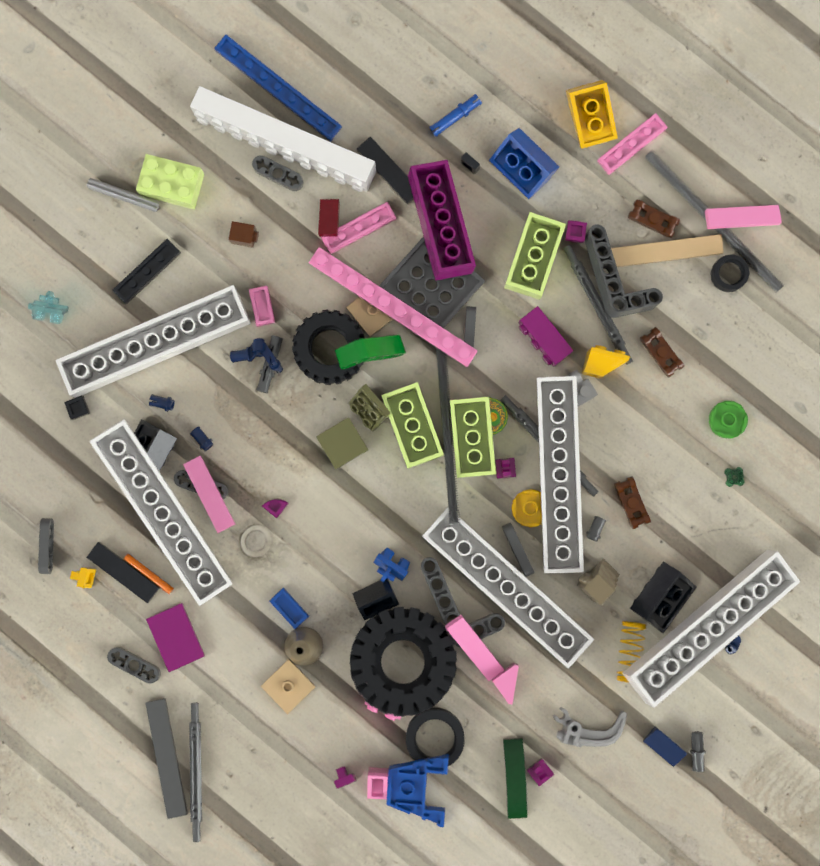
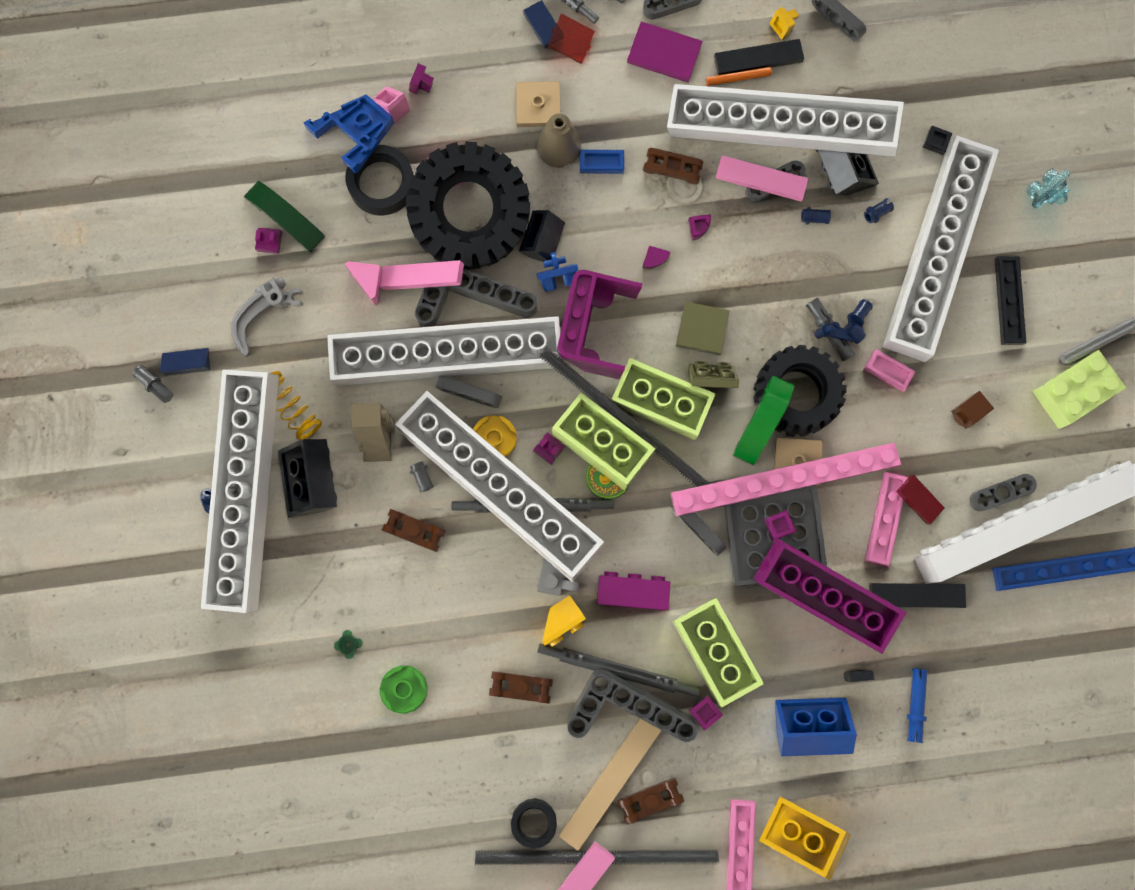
camera: 125 degrees right, 5 degrees down
(223, 707) = (571, 38): none -> clear red piece
(229, 735) = (540, 21): none -> dark blue tile
(250, 559) = (673, 165): none -> reddish brown plate
(322, 515) = (655, 257): none -> magenta tile
(391, 535) = (589, 291): none -> magenta windscreen
(424, 286) = (780, 525): none -> magenta tile

